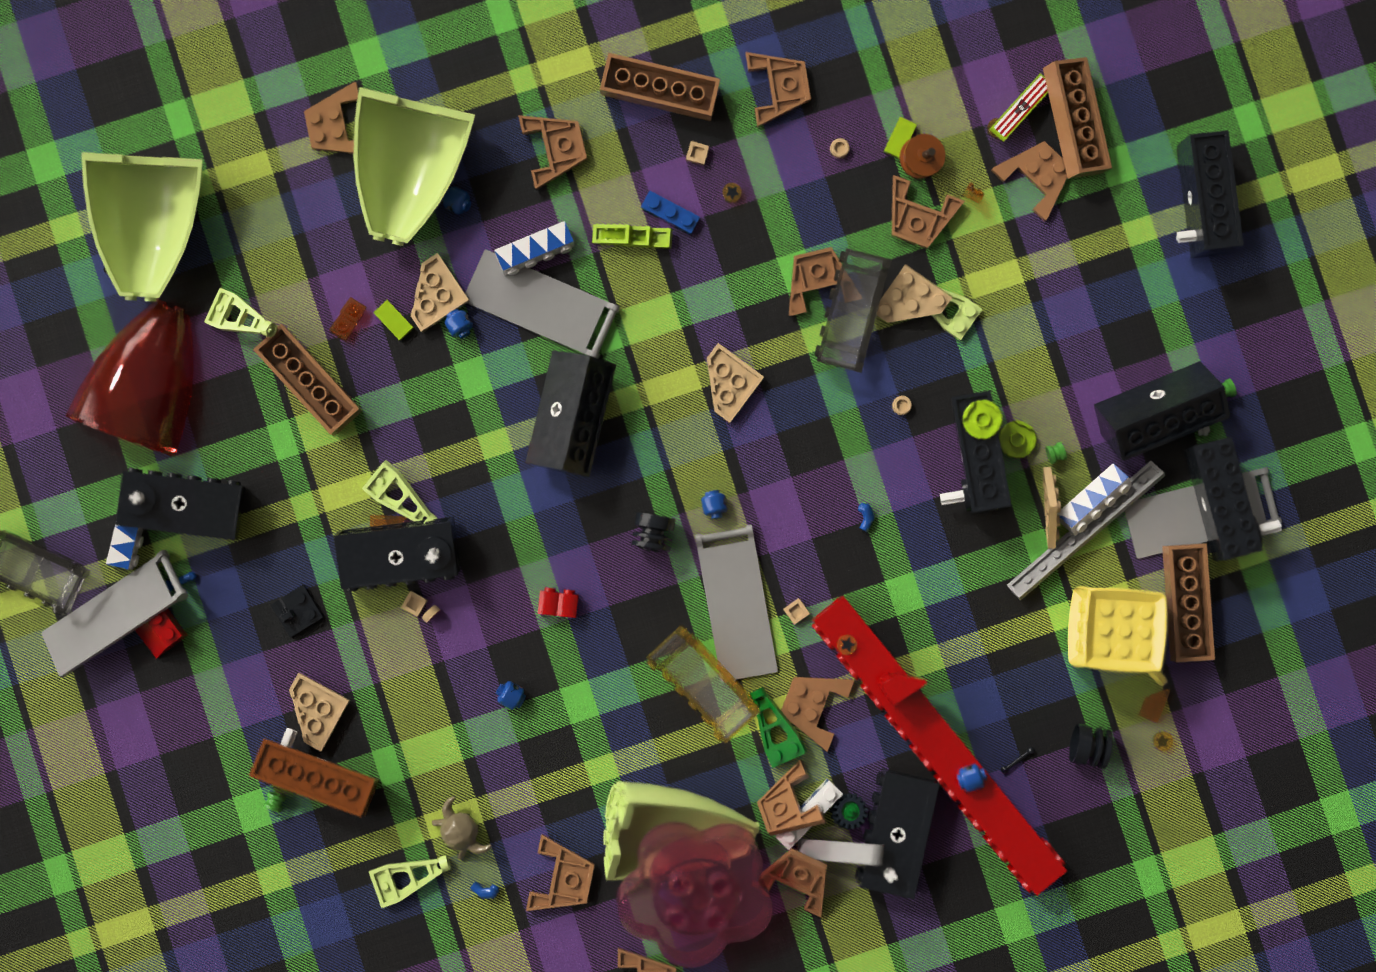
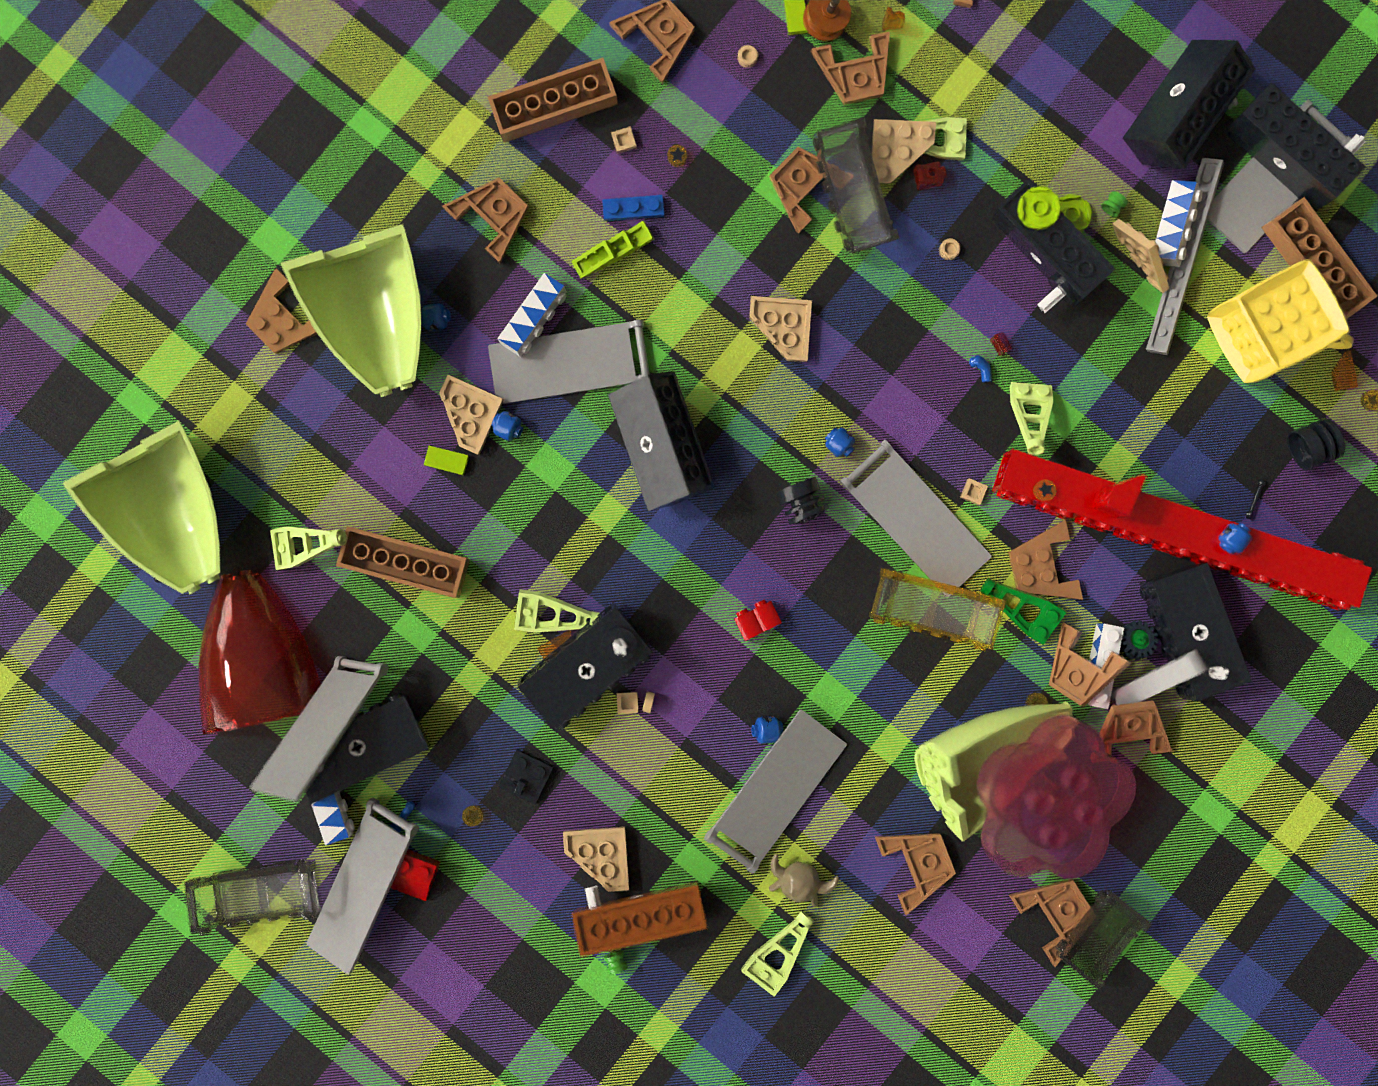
camera: 25 degrees left, 0 degrees up
(158, 469) = (318, 729): none -> light grey flag
(235, 615) = (472, 815): none -> clear yellow tile
(348, 319) = (404, 485): clear orange slope -> none
(485, 893) = (858, 922): blue arm -> none
(488, 747) = (777, 789): none -> light grey flag
(740, 807) = (1036, 699): none -> clear yellow tile
(889, 562) = (1032, 395): none -> yellowish green plate
(894, 507) = (1001, 343): none -> clear red slope
(916, 339) = (925, 180): none -> clear red brick

